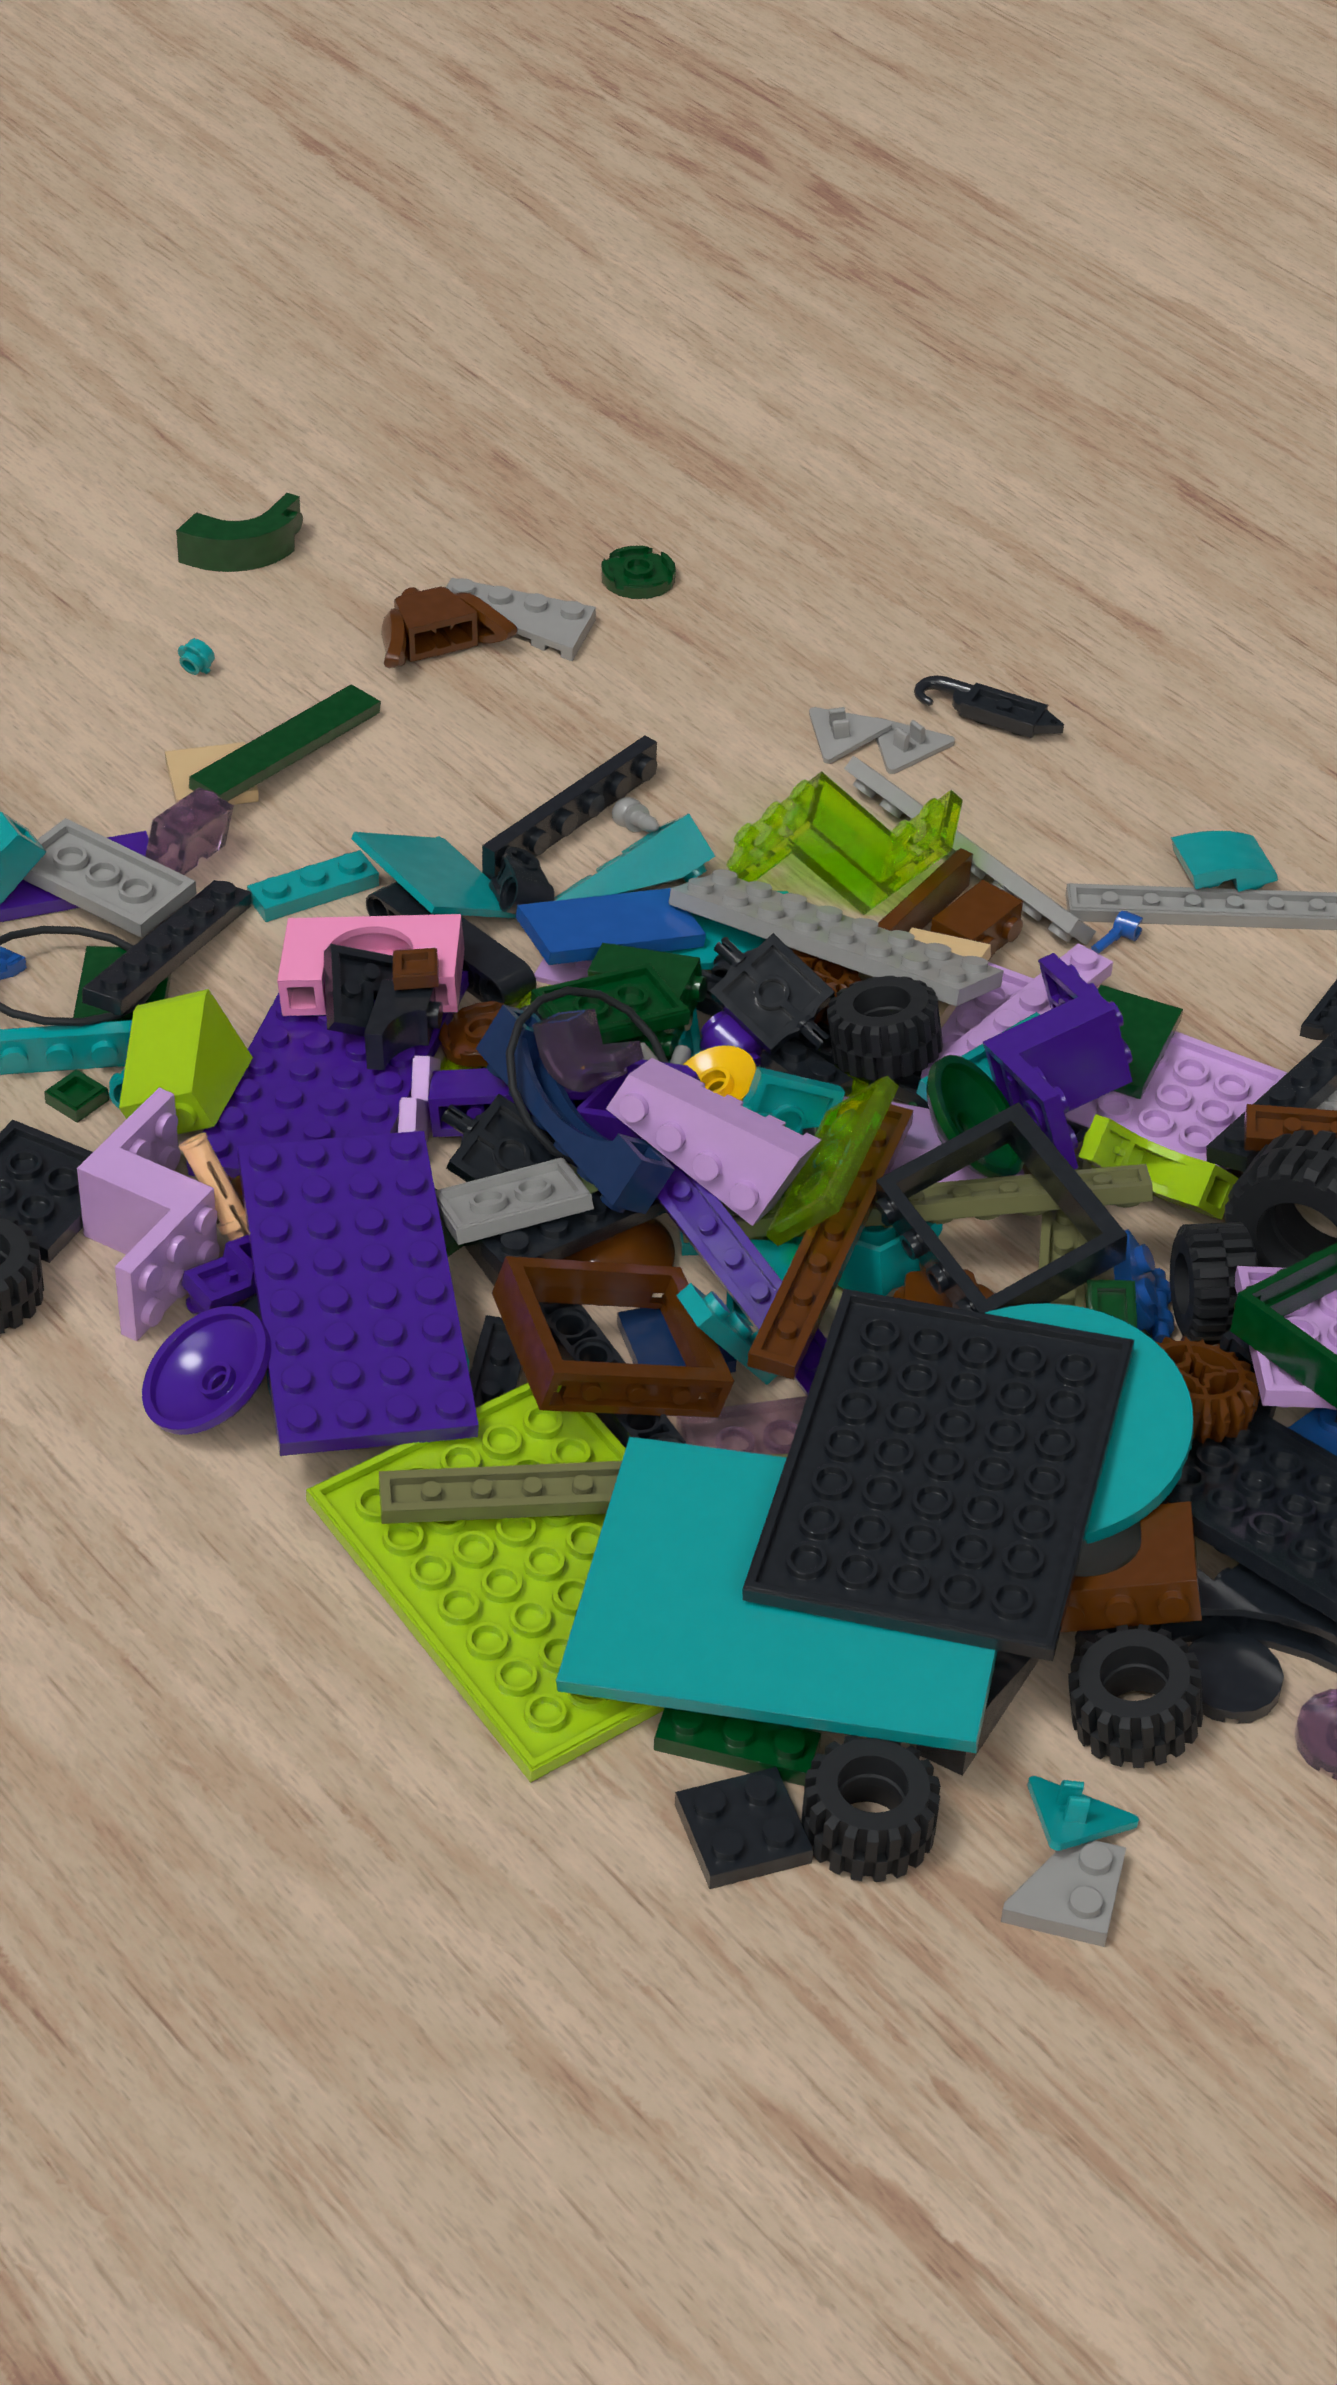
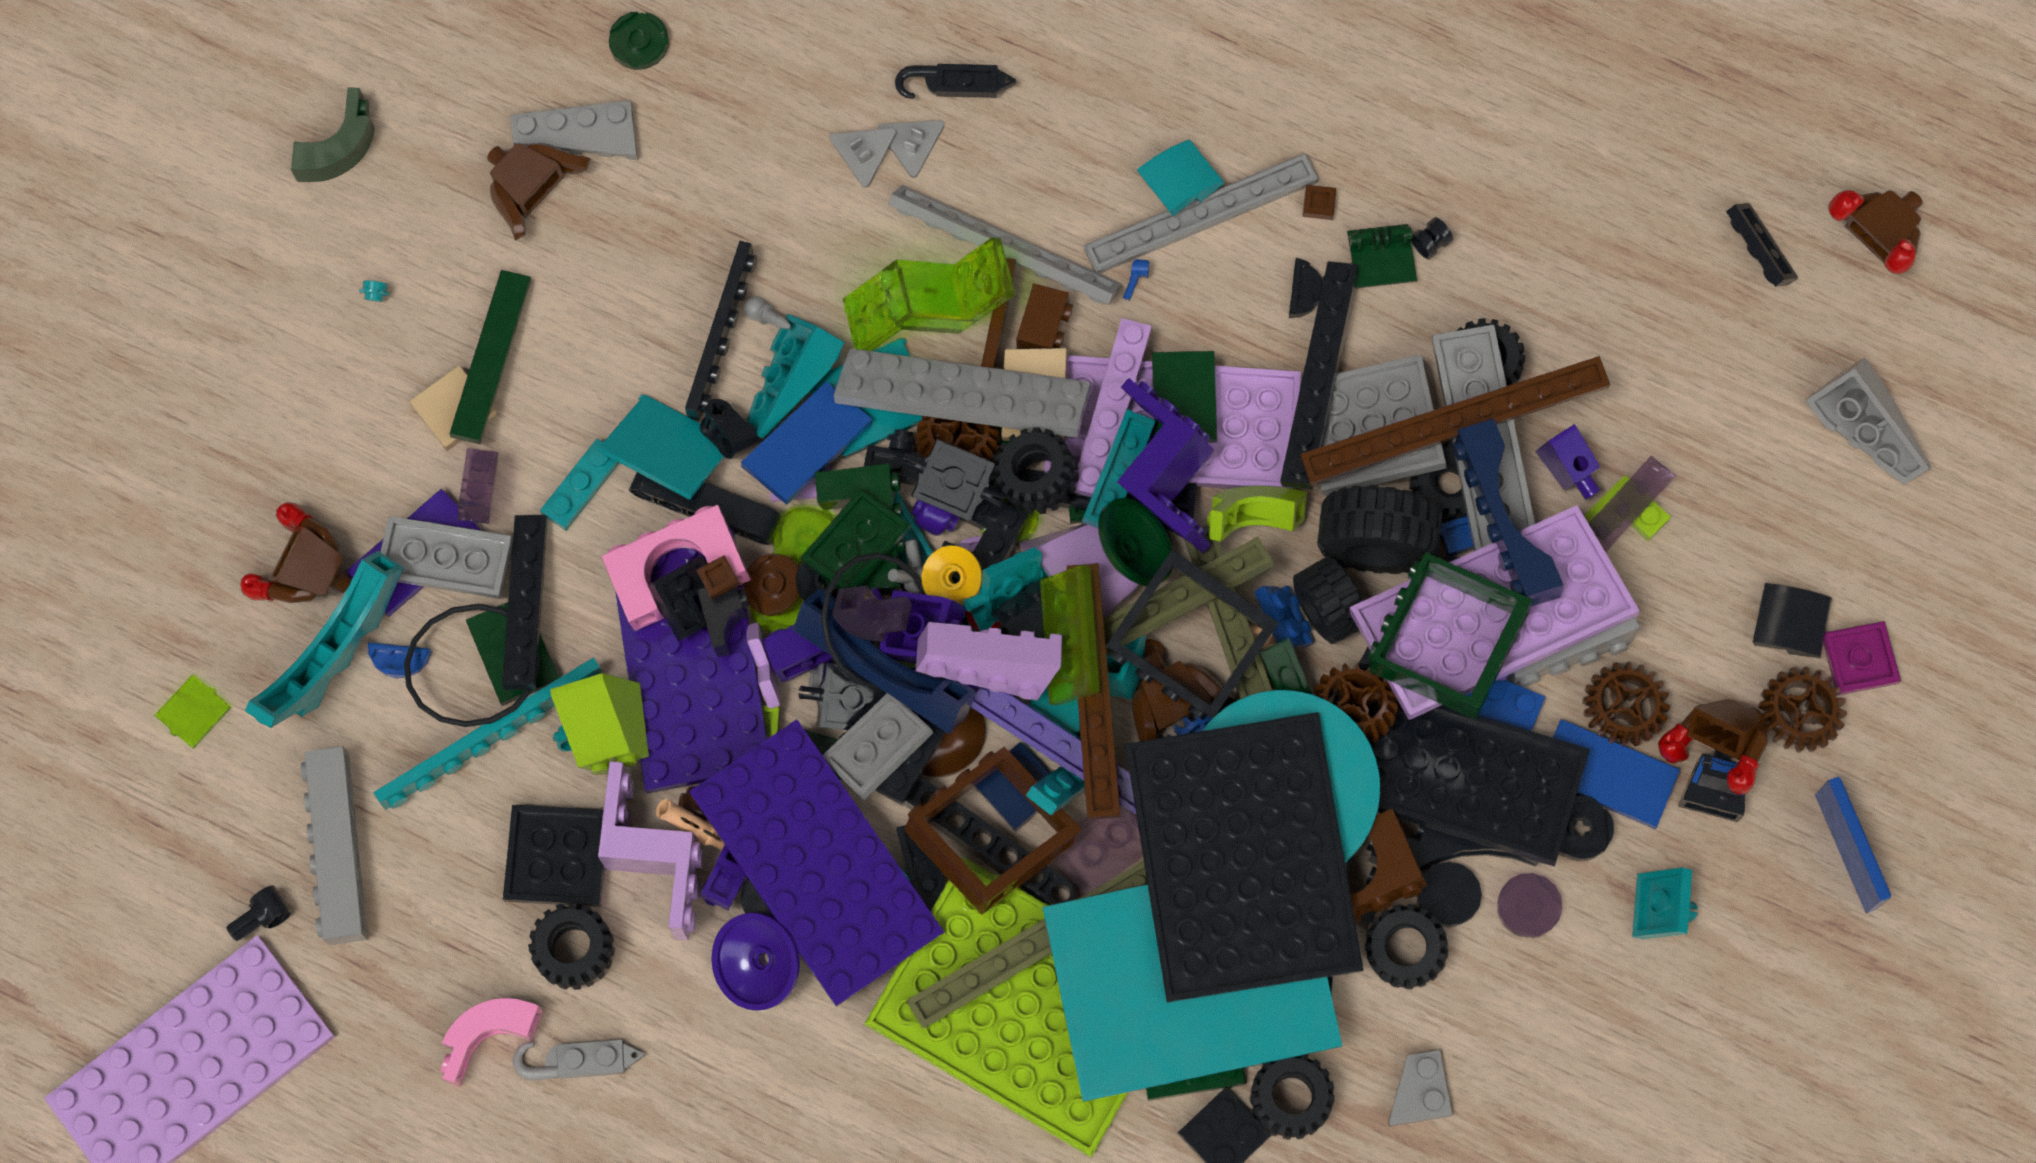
camera: 20 degrees left, 30 degrees up
(76, 1095) = (534, 755): dark green tile -> none
(1073, 1817) = (1401, 1039): teal piece -> none

